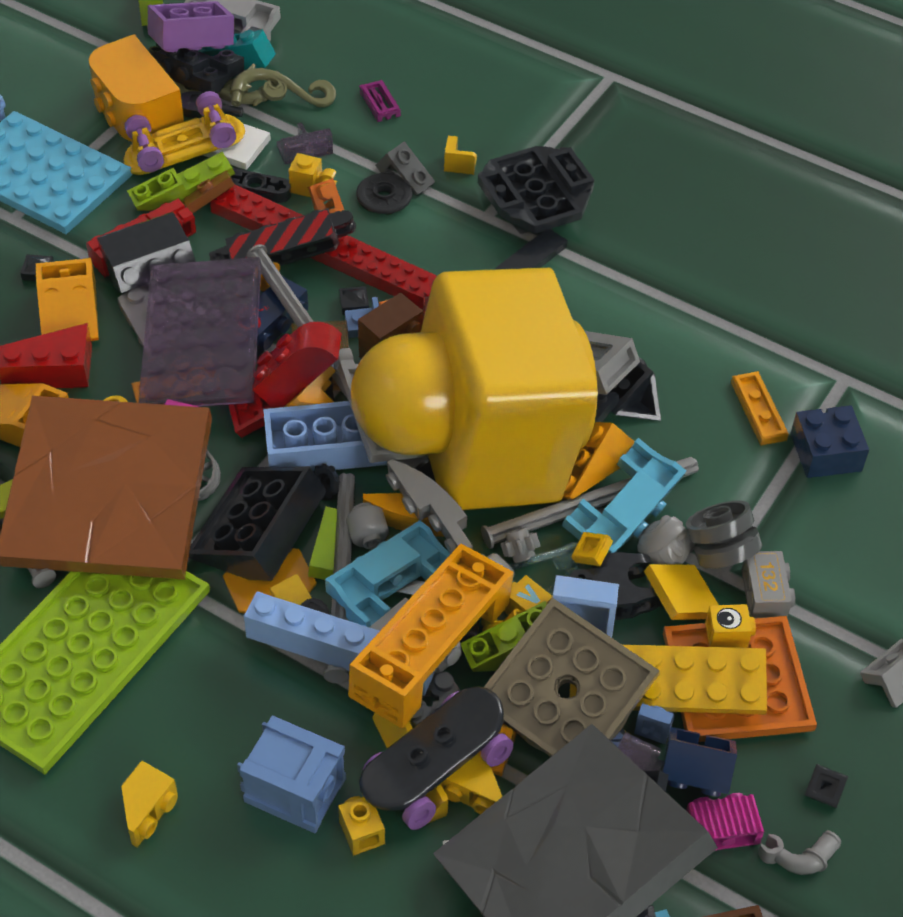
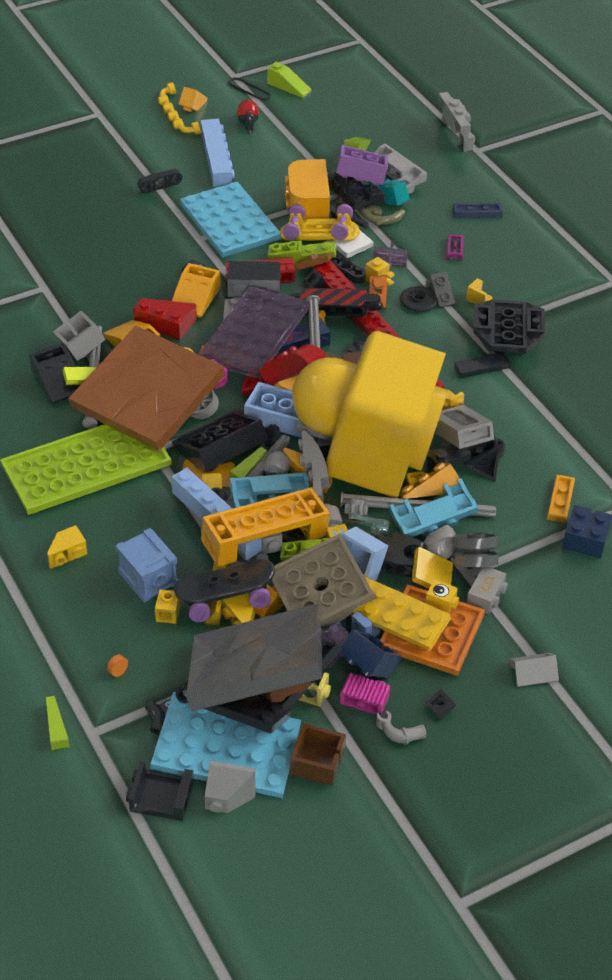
camera: 30 degrees right, 5 degrees down
(226, 220) = (314, 279): none -> black tile
(278, 92) = (395, 221): olive plant -> none
(372, 37) = (477, 210): none -> dark blue tile
(592, 548) = (392, 525): yellow tile -> none

